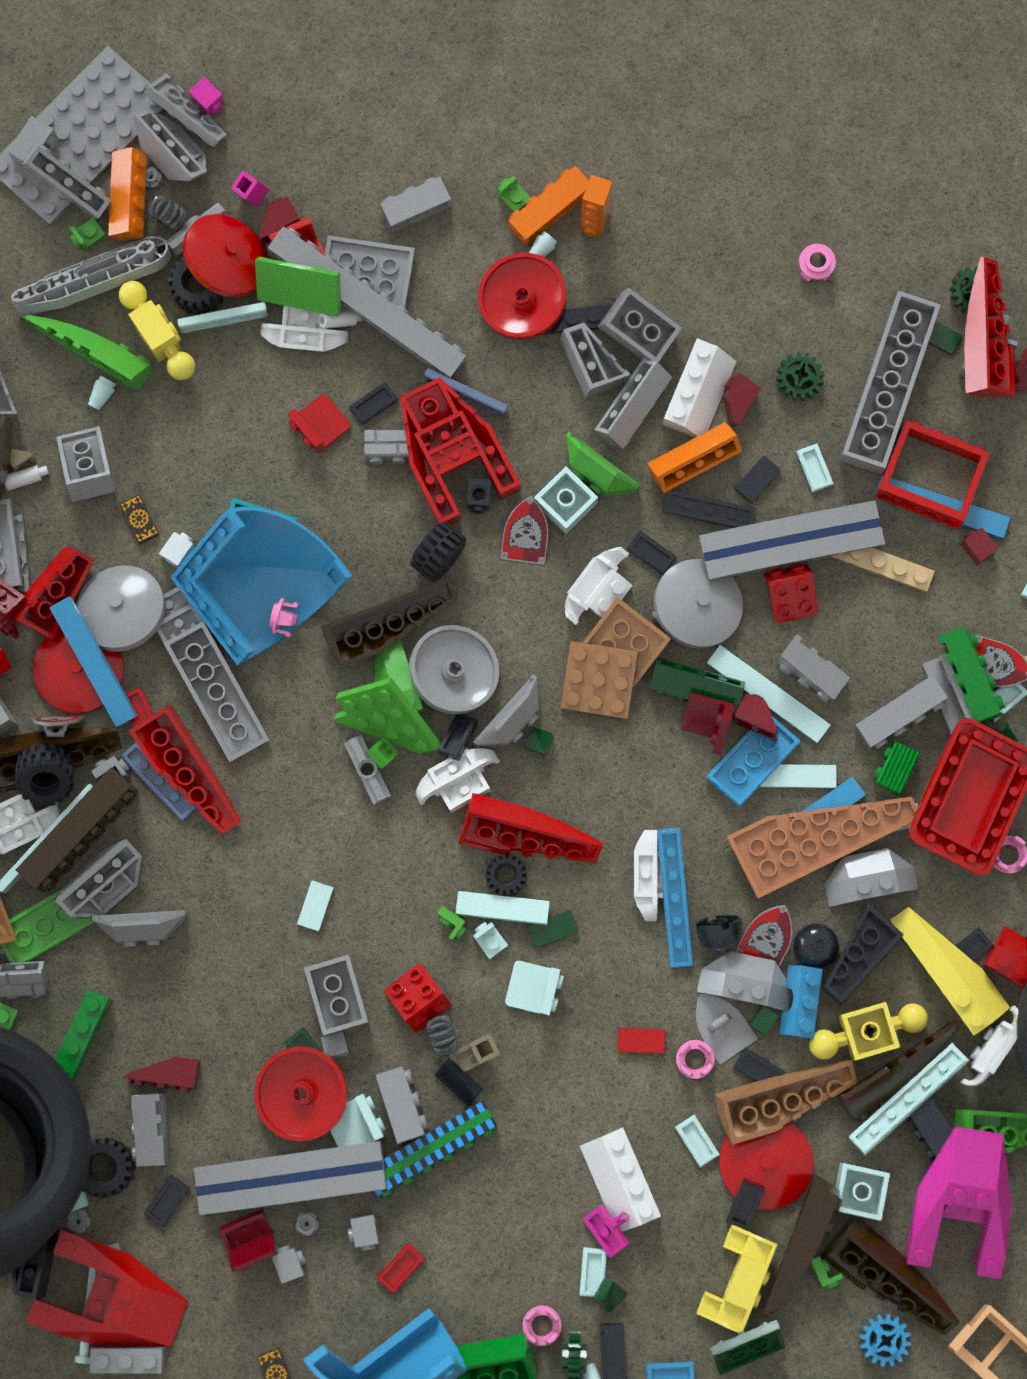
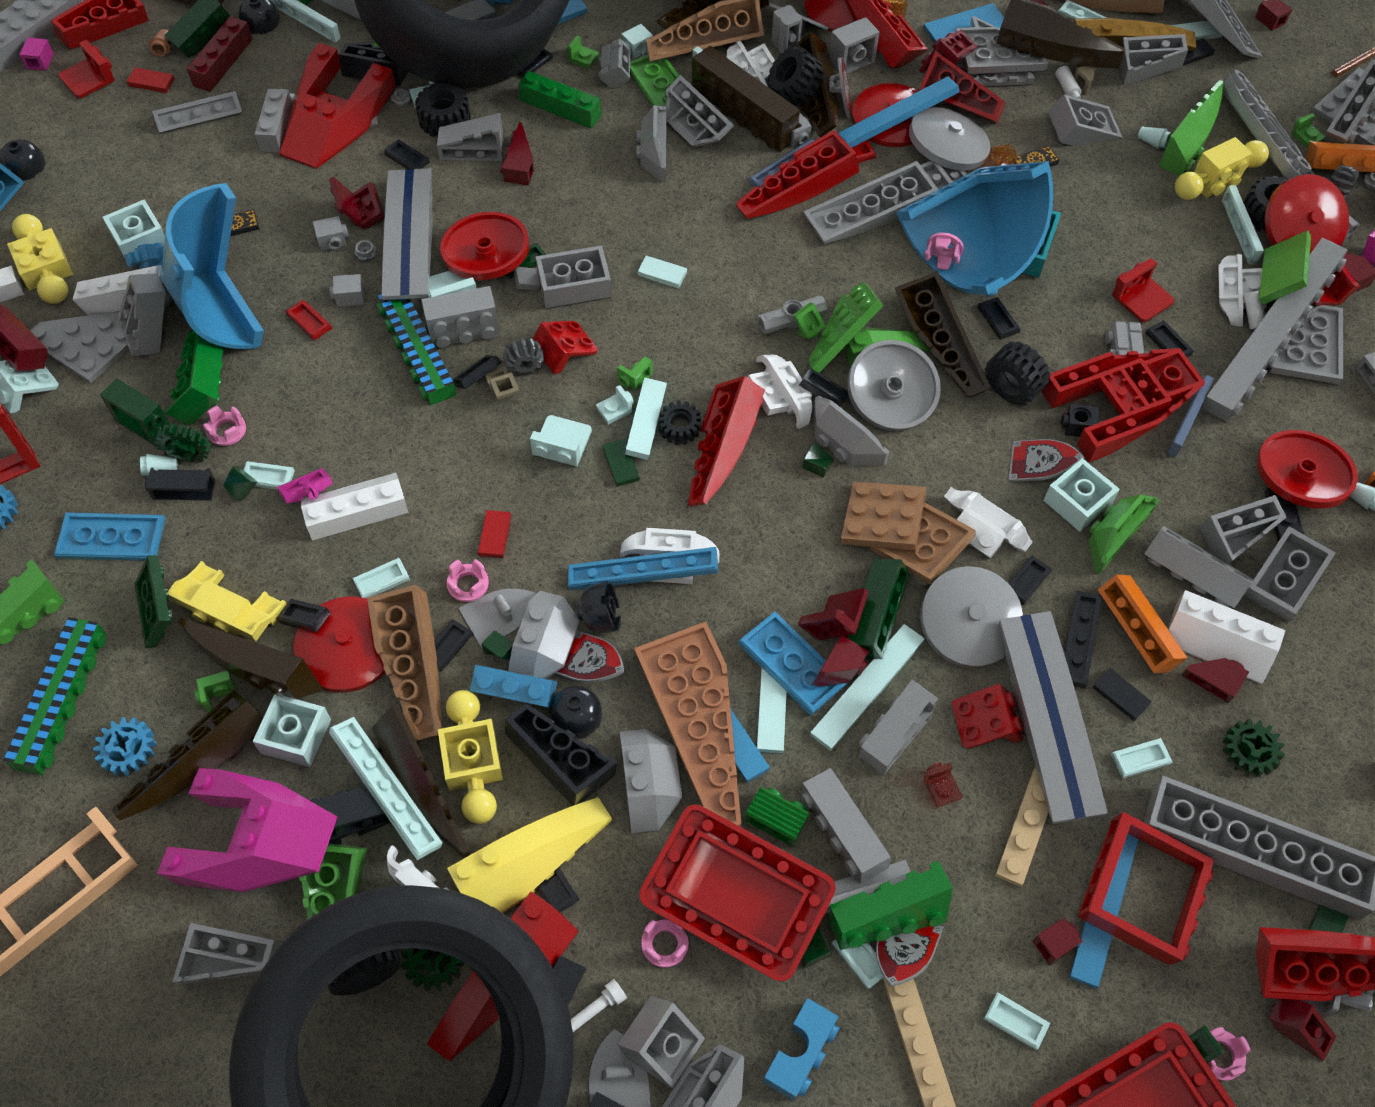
camera: 90 degrees right, 20 degrees down
(140, 552) = (1003, 154): none -> clear orange bracket
(360, 563) = (998, 318): none -> black tile
(855, 632) = (942, 784): none -> clear red bracket

